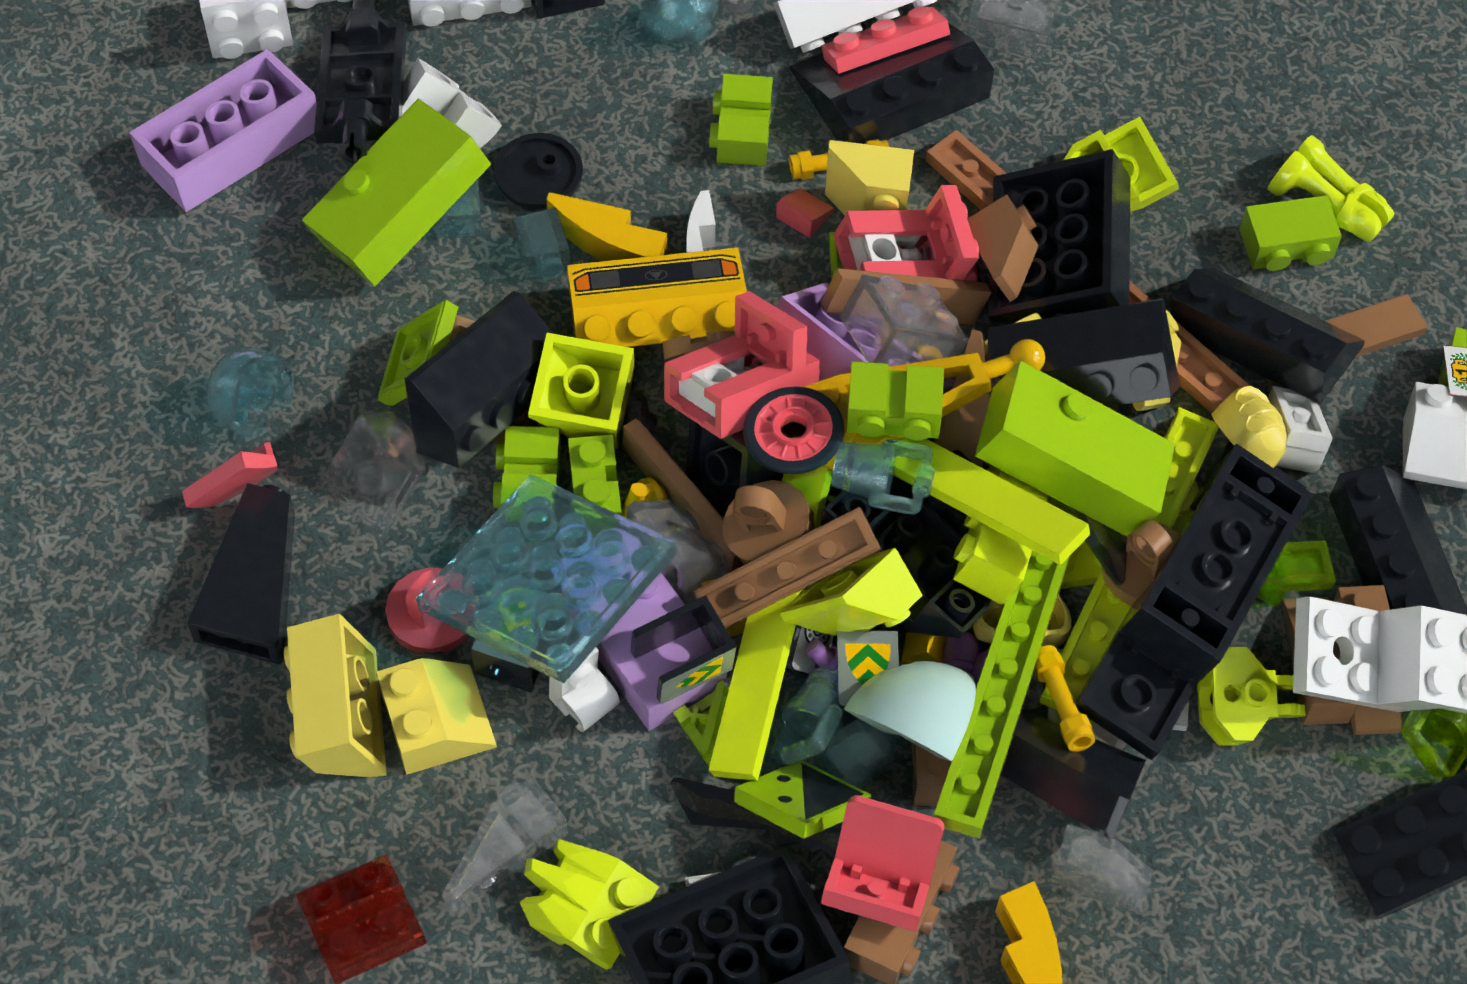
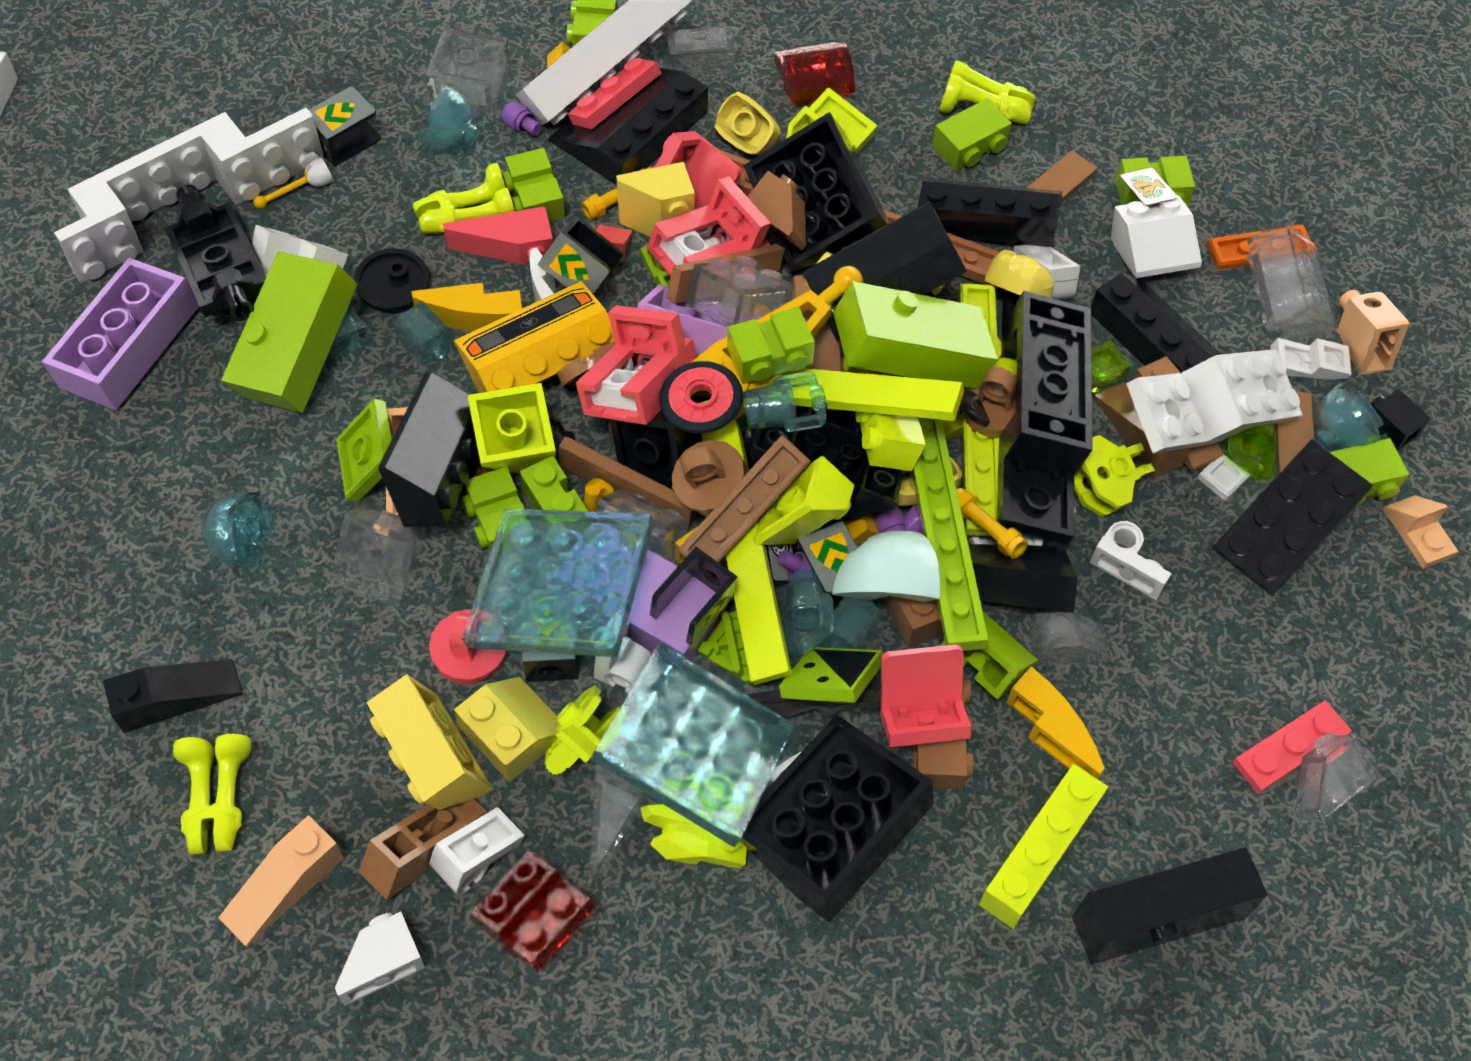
camera: 25 degrees left, 0 degrees up
(100, 693) = (198, 756): none -> neon yellow piece
(103, 536) = (168, 691): none -> black slope
(126, 779) = (281, 880): none -> light nougat slope
(184, 902) = (378, 958): none -> white slope
(231, 477) = (258, 603): coral slope -> none
(249, 581) = (310, 684): black slope -> none
(276, 798) = (405, 849): none -> medium nougat slope
(325, 829) = (470, 850): none -> white plate
(500, 752) = (577, 732): none -> neon yellow hinge
(512, 22) = (315, 174): none -> hinge
(611, 811) = (694, 744): none -> clear light blue plate
(628, 113) = (450, 207): none -> neon yellow piece
(684, 163) = (502, 235): none -> coral slope
(752, 218) = (580, 256): none -> piece
(767, 27) = (517, 115): none -> medium lavender cylinder
(937, 158) = (702, 161): none -> coral bracket
(1004, 853) = (1001, 662): none -> lime brick
(1022, 129) = (746, 124): none -> light yellow piece
(1138, 88) = (814, 69): none -> clear red brick
(1215, 809) = (1125, 563): none -> white plate
(1390, 756) = (1223, 477): none -> white tile

